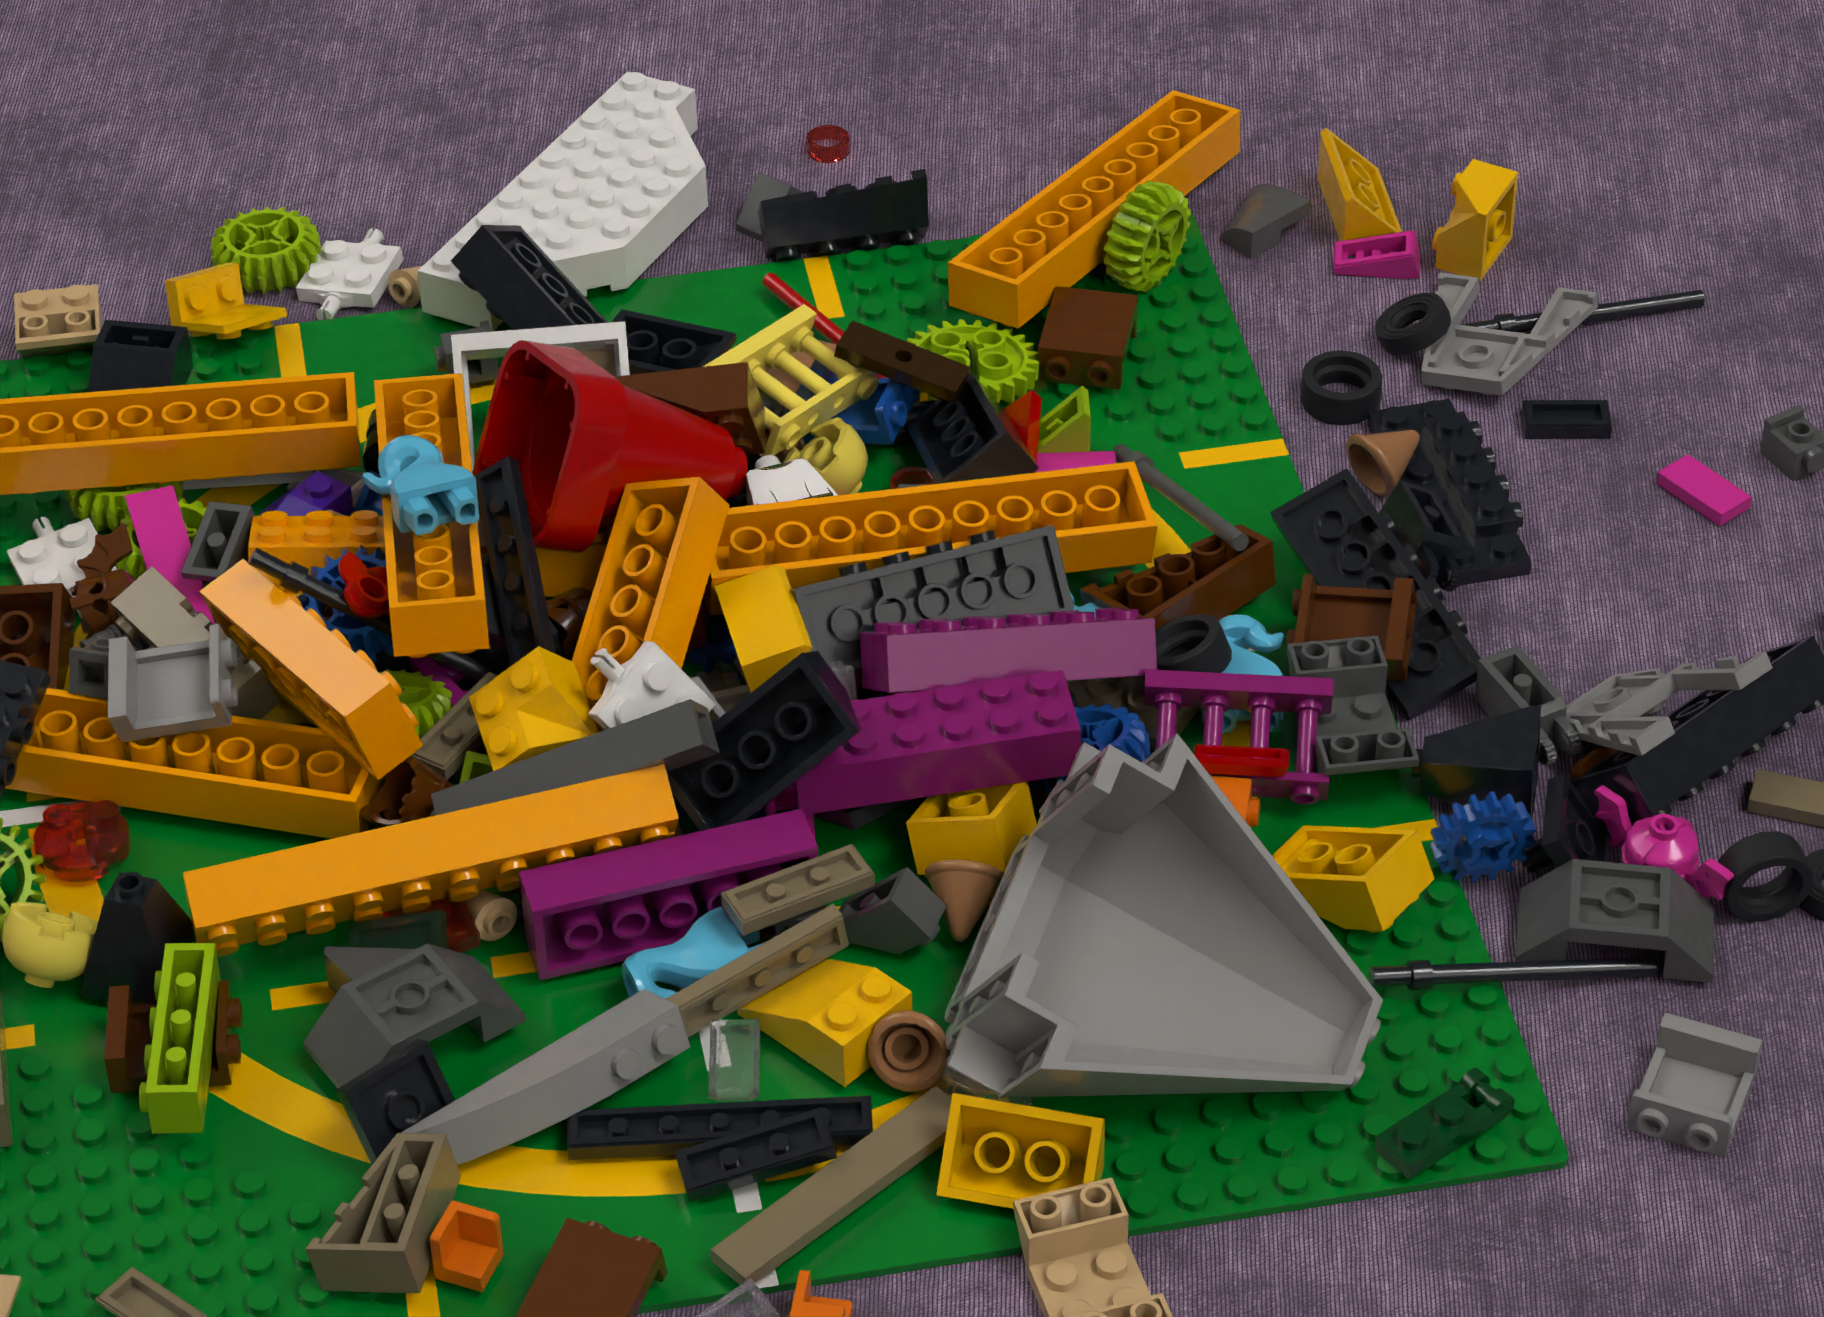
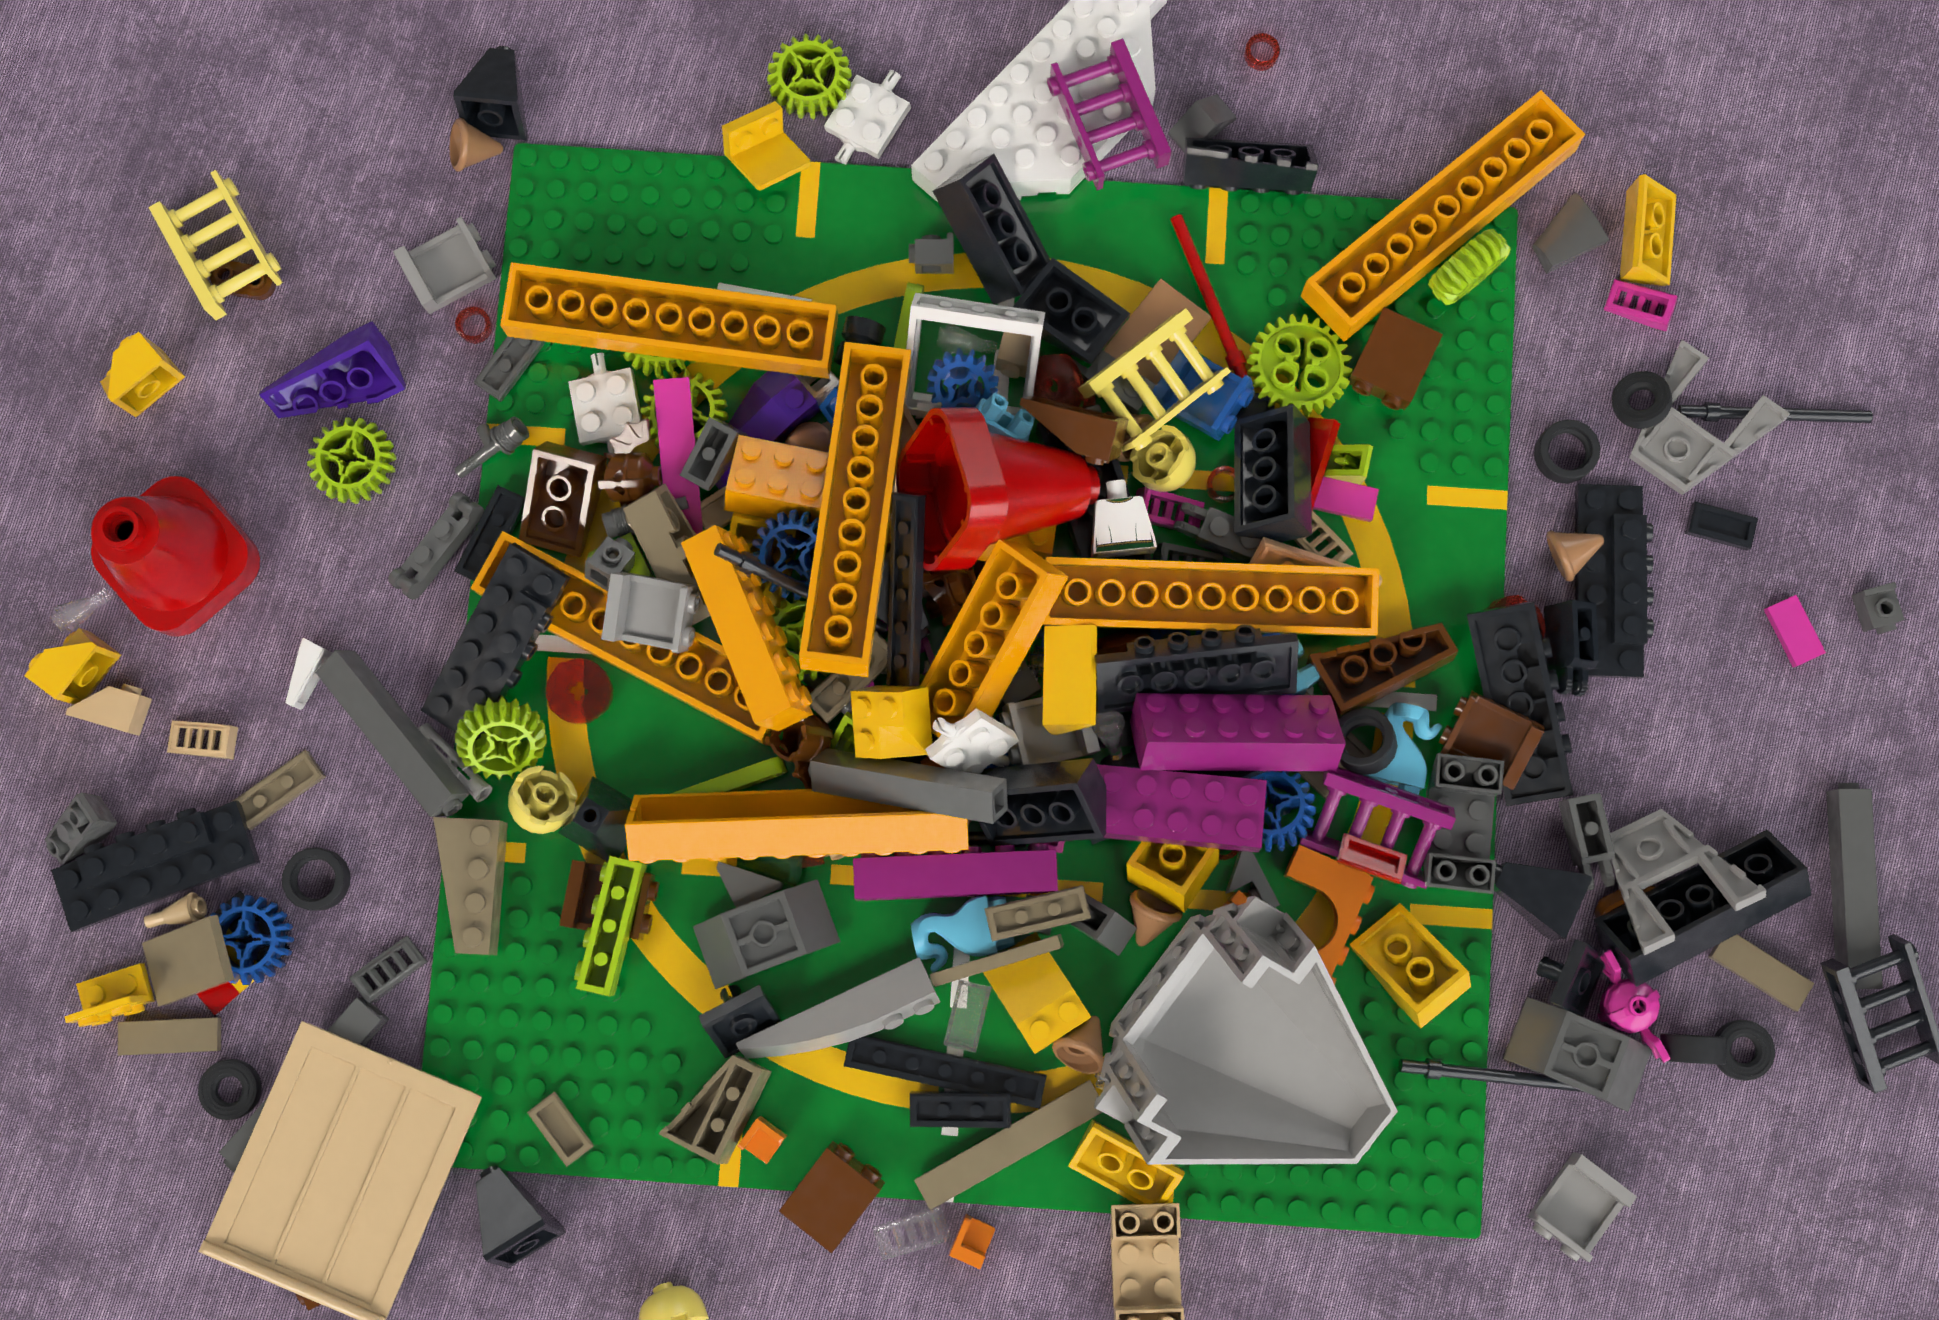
camera: 15 degrees right, 40 degrees up
(57, 320) = (641, 133): tan slope -> none
(139, 356) = (689, 213): black slope -> none
(365, 587) = (795, 567): red plate -> none
(405, 286) = (911, 144): tan cone -> none
(423, 487) = (850, 527): medium azure hips -> none
(668, 149) = (1129, 90): none -> magenta fence
(902, 362) = (1258, 405): dark brown tile -> none
(1182, 498) = (1392, 514): dark grey bar -> none
(1443, 1124) = (1406, 1199): dark green plate -> none
(1479, 221) = (1730, 299): yellow slope -> none
(1482, 837) = (1514, 966): blue gear -> none

